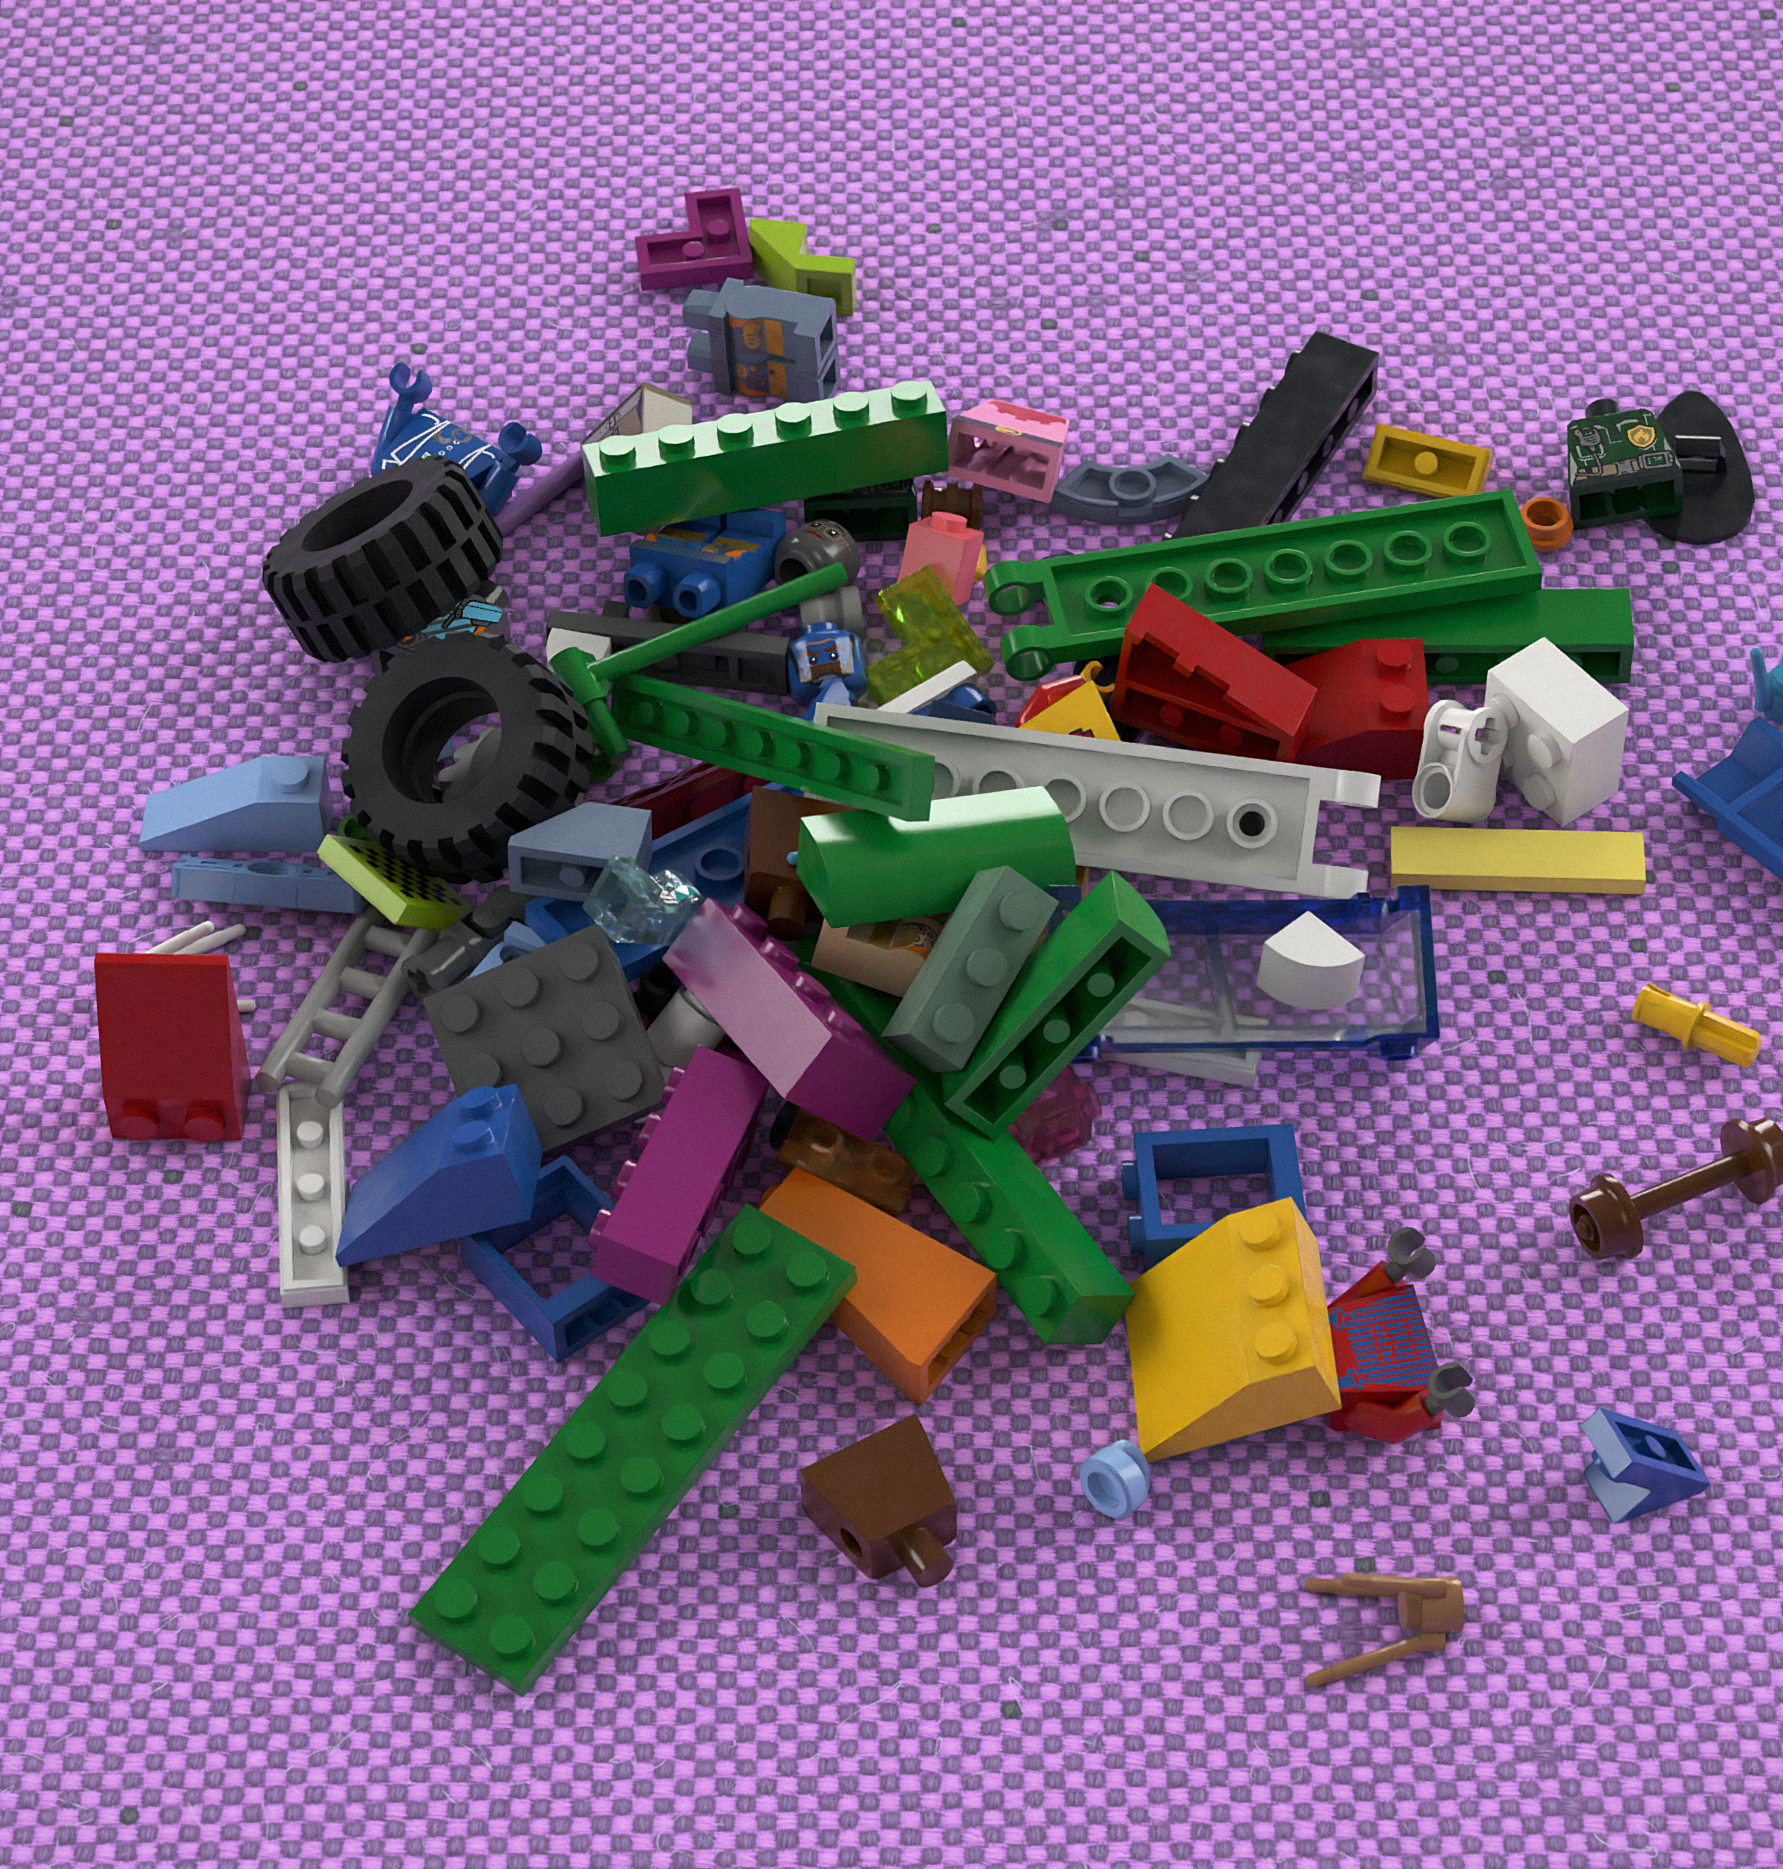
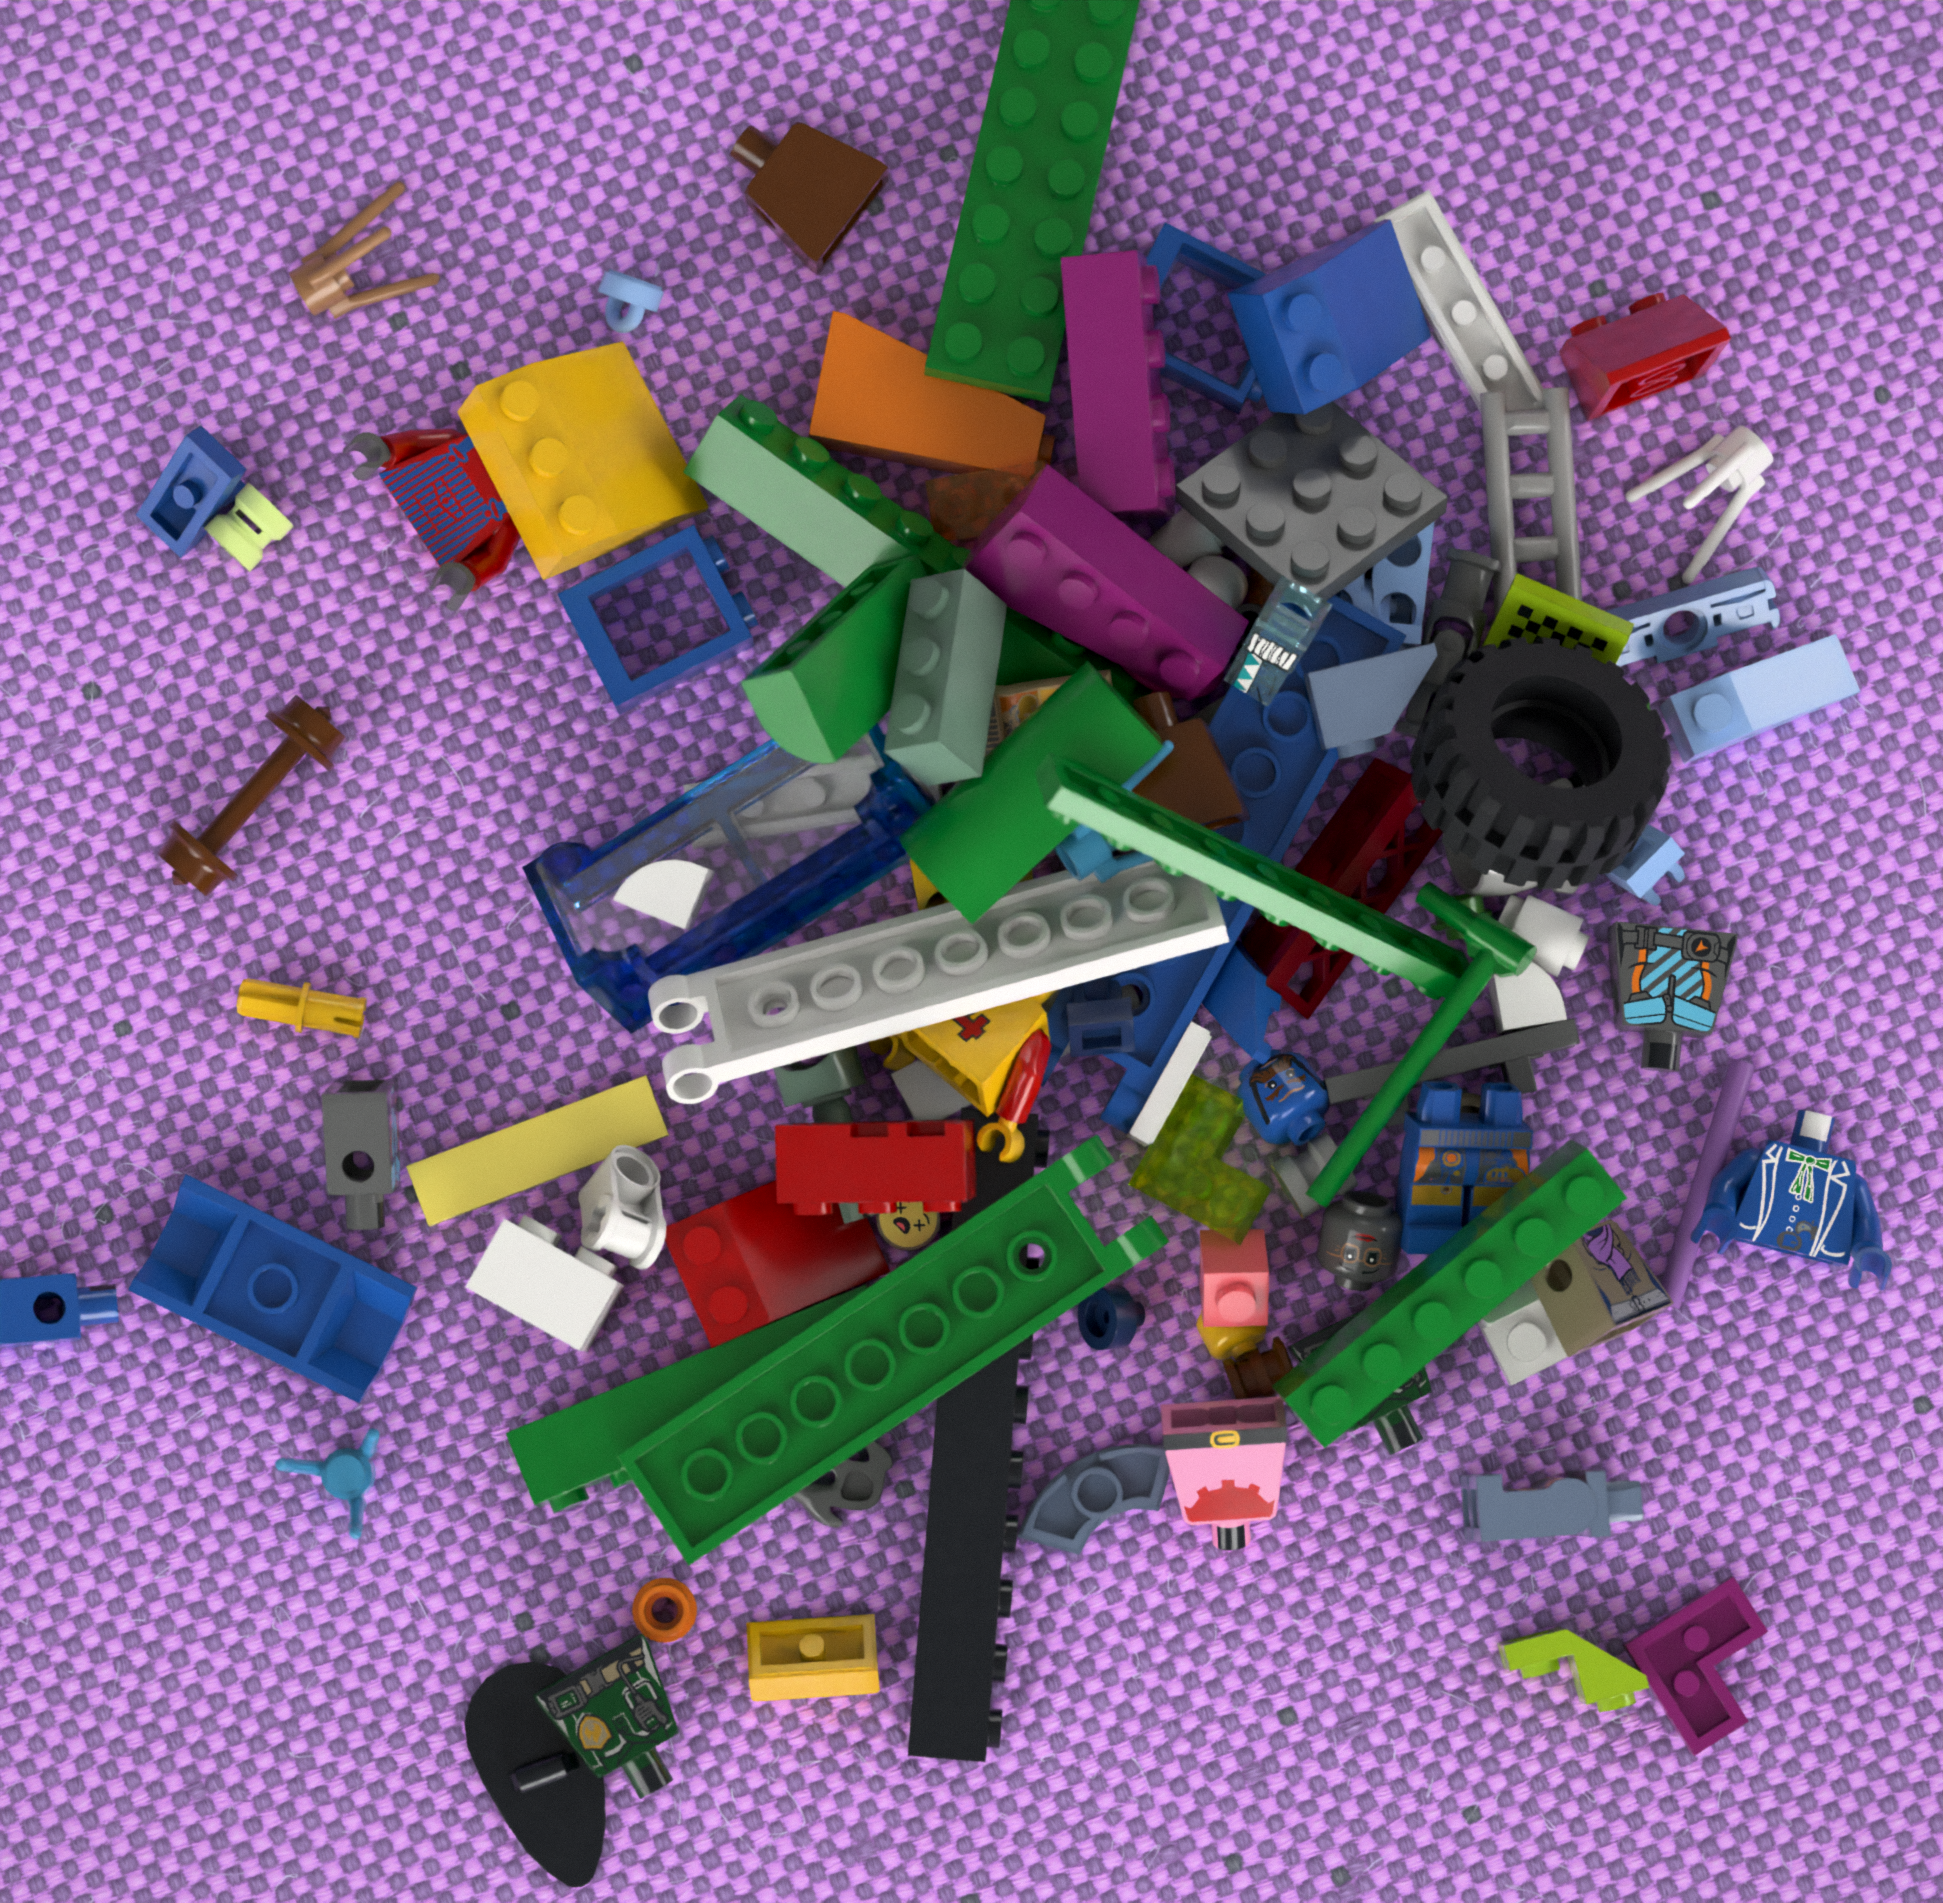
camera: 150 degrees right, 35 degrees up
(383, 559) = (1703, 988): black tyre -> none
(1574, 1406) = (238, 537): none -> yellowish green wheel
(1680, 872) = (364, 1119): none -> dark grey torso

